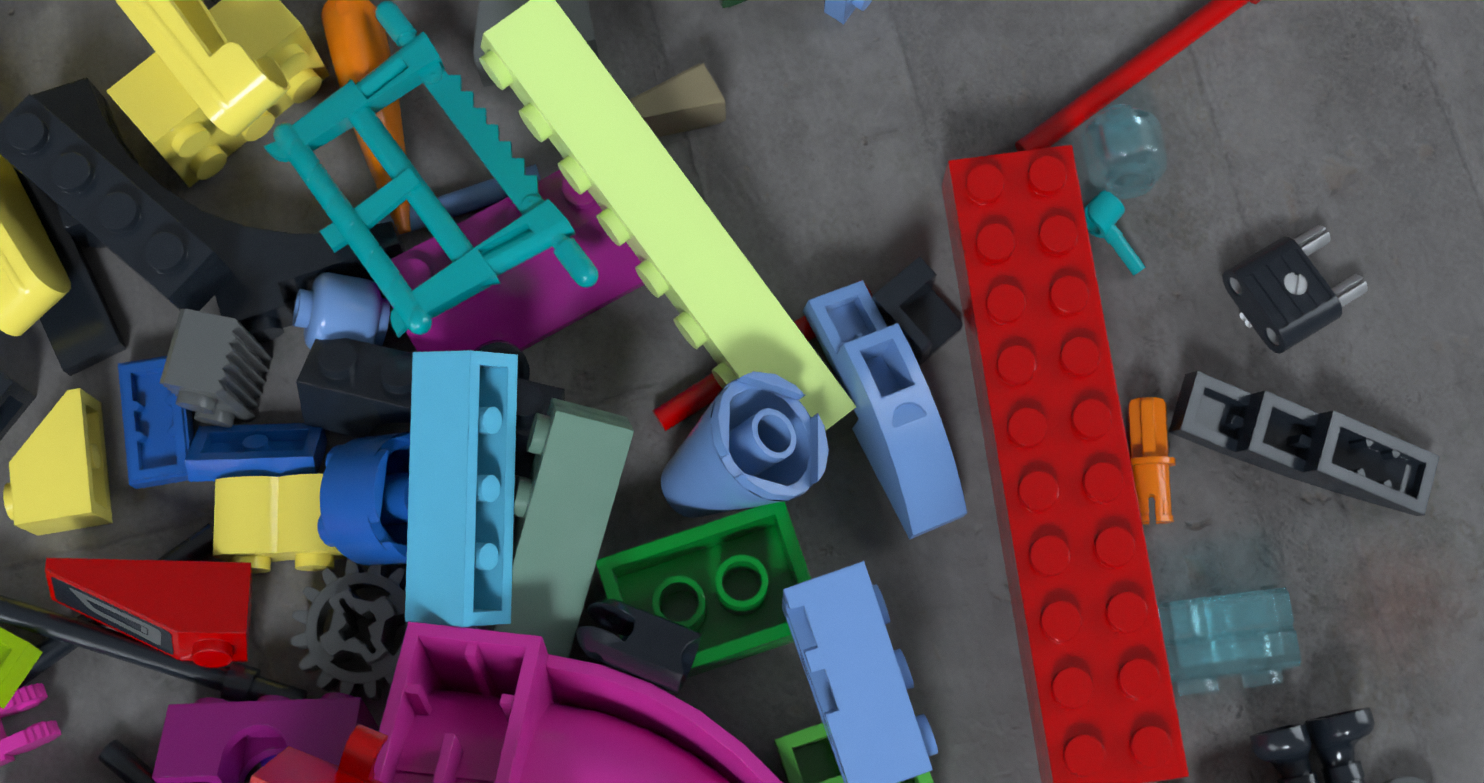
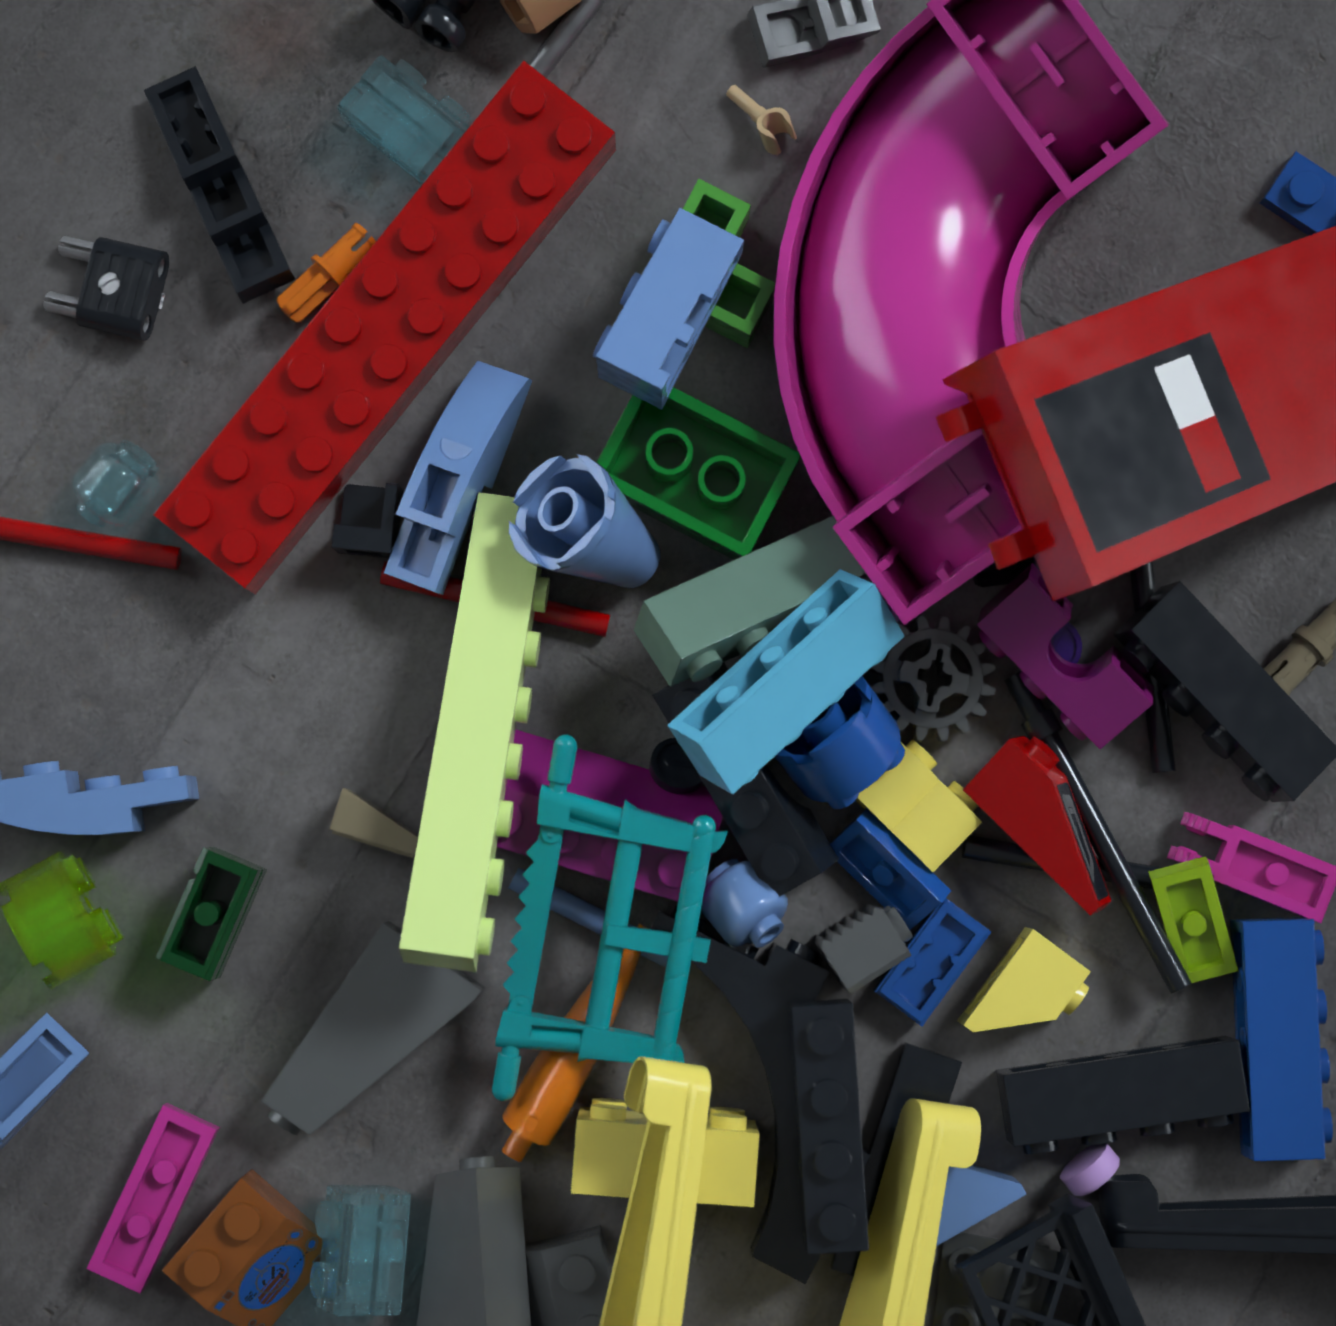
camera: 140 degrees left, 10 degrees up
(650, 644) = (774, 468): black piece -> none
(1101, 218) = (178, 460): teal hand -> none

